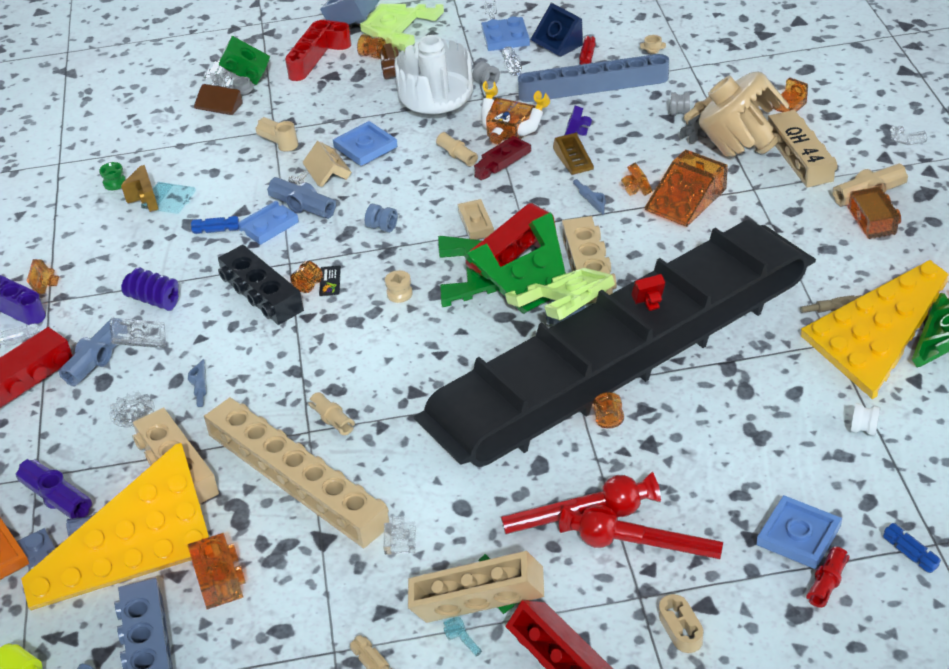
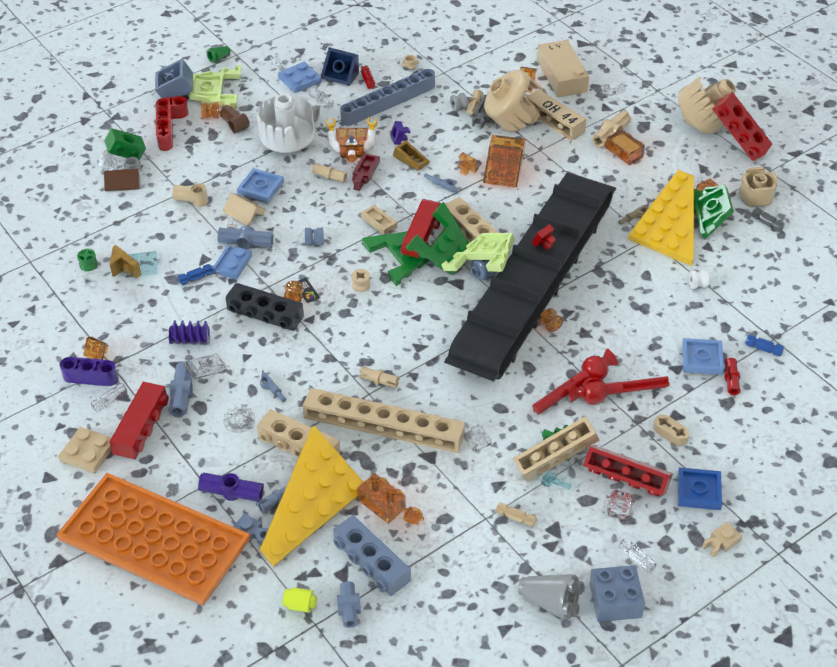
camera: 30 degrees left, 5 degrees up
(237, 609) = (413, 515): none -> clear orange plate
(850, 93) = (562, 68): none -> tan brick

